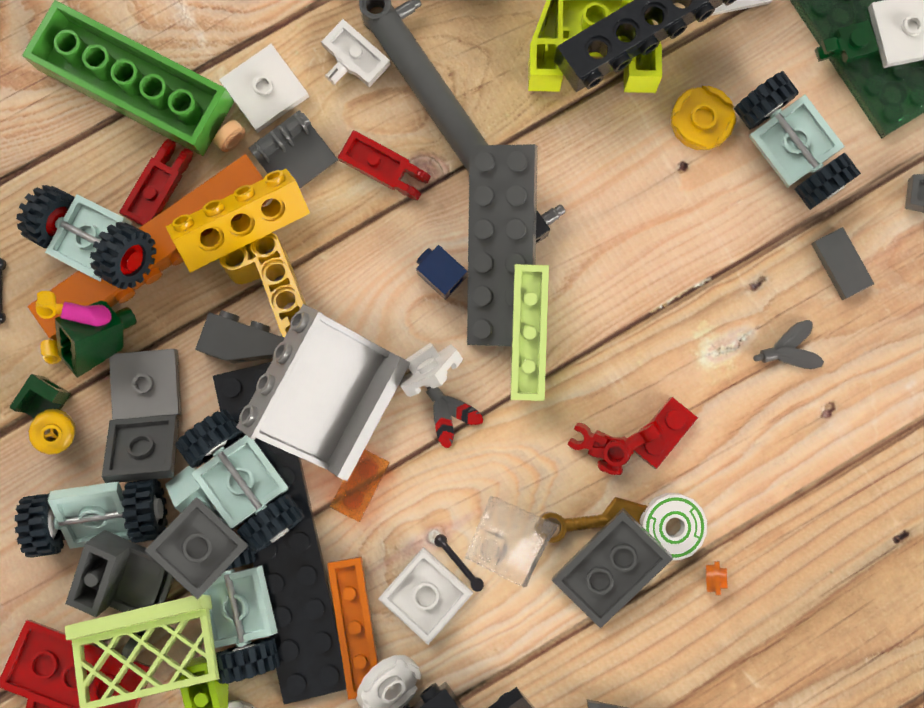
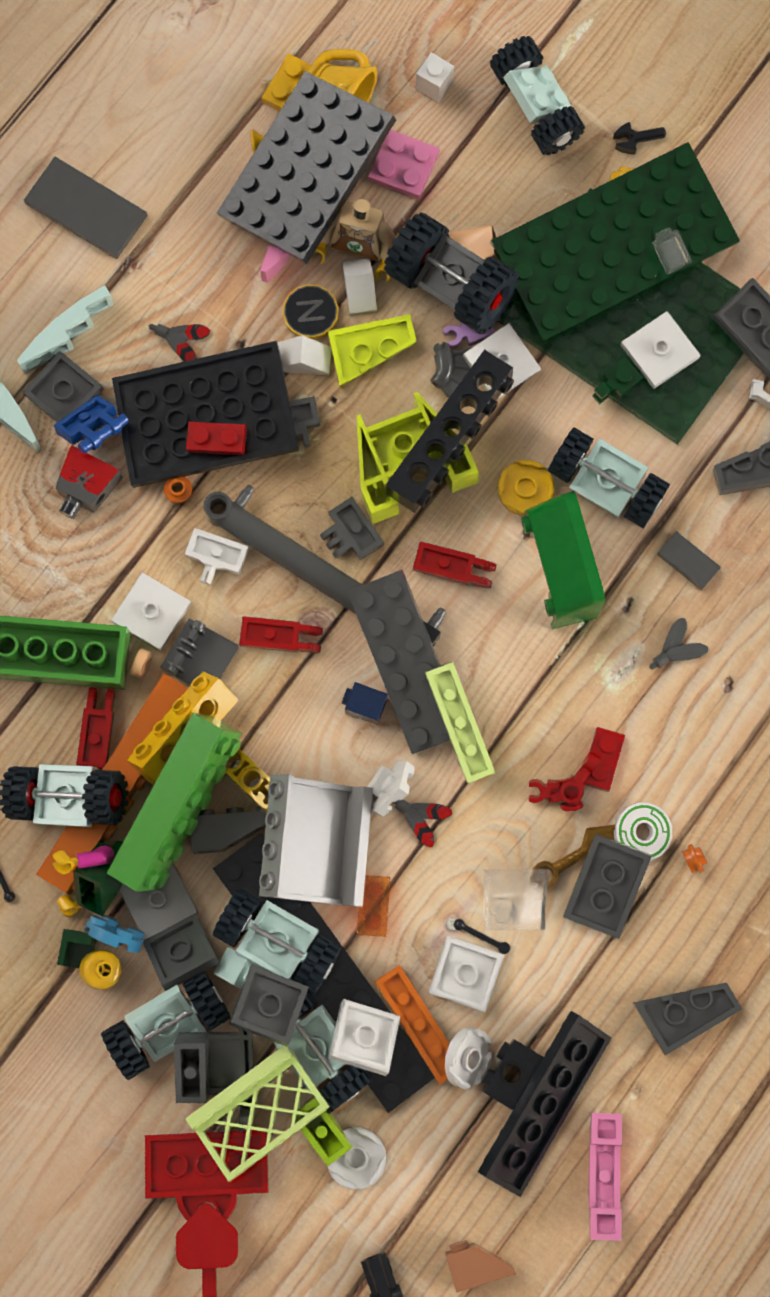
camera: 25 degrees left, 5 degrees down
(78, 398) = (108, 932): none -> dark azure plate
(192, 291) = (175, 803): none -> bright green brick
(288, 620) = (364, 1037): none -> white plate
(502, 88) = (351, 531): none -> dark grey hinge
(592, 166) = (451, 565): none -> red hinge
(716, 207) = (566, 560): none -> green windscreen

